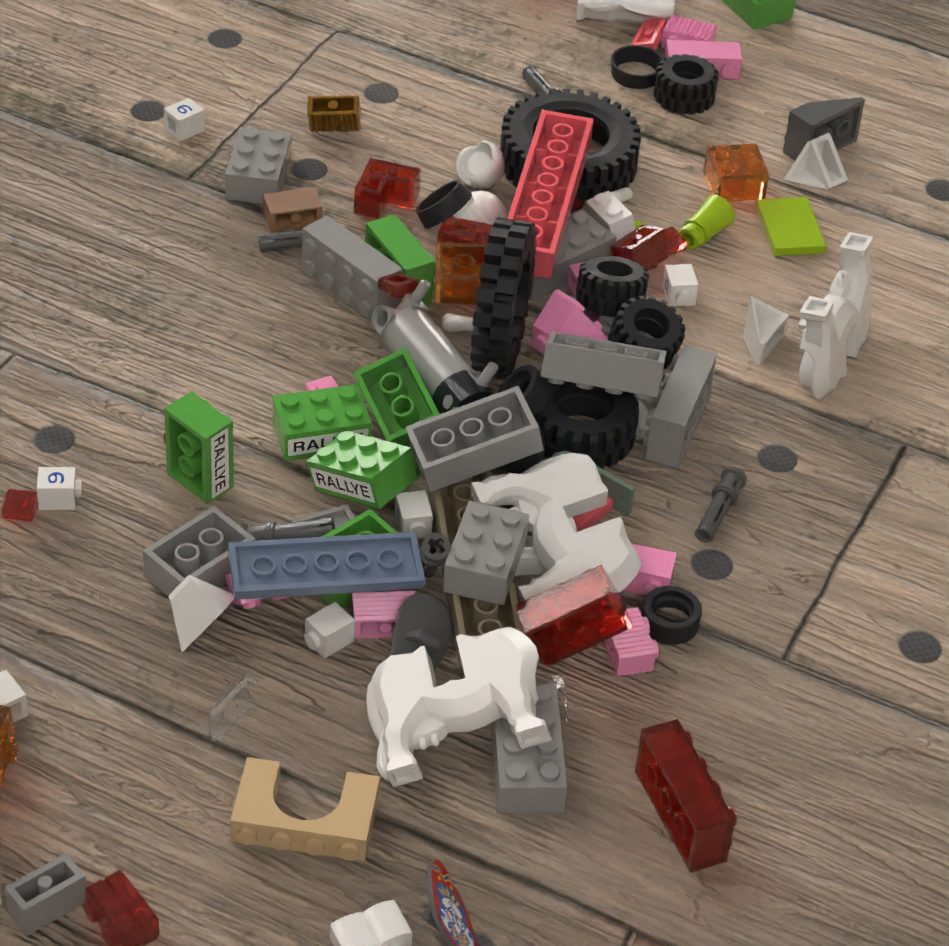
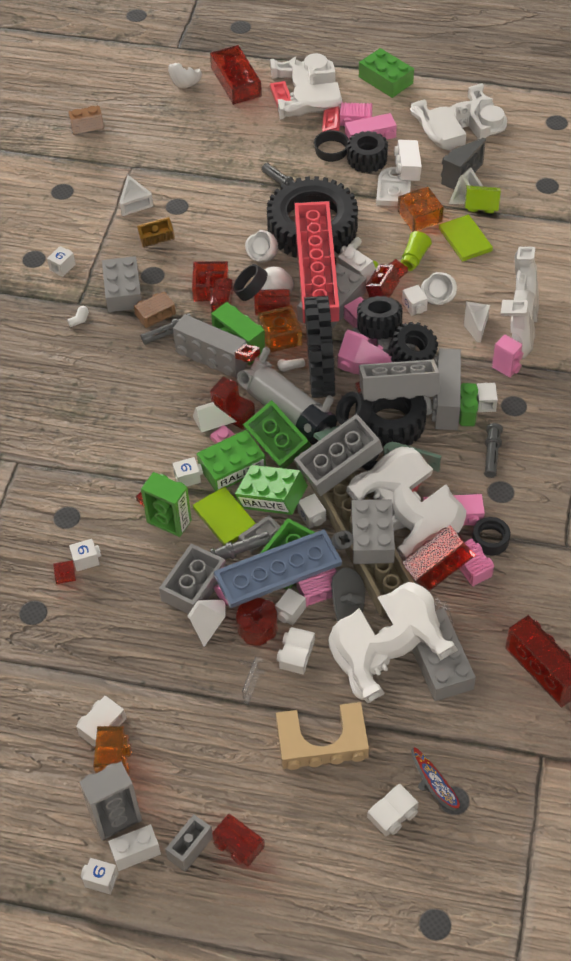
camera: 10 degrees left, 10 degrees up
(182, 194) = (80, 317): none -> white arm
(251, 421) = (187, 471): none -> white brick
(271, 634) = (257, 621): none -> clear red brick
(281, 489) = (223, 515): none -> lime tile
(314, 358) = (210, 417): none -> white slope
(314, 688) = (296, 650): none -> white brick
(321, 64) = (134, 197): none -> white slope
(346, 343) = (226, 398): none -> clear red brick
(401, 203) = (221, 293): none -> clear red brick
(704, 132) = (391, 187): none -> white tile
(705, 435) = (468, 404): none -> bright green brick
(722, 277) = (439, 288): none -> white piece
(737, 434) = (487, 397): none -> white brick
(741, 107) = (408, 160): none -> white brick
(788, 385) = (507, 356): none -> bright pink brick
(822, 77) = (446, 124): none -> white animal
(833, 179) = (482, 198): none -> lime brick

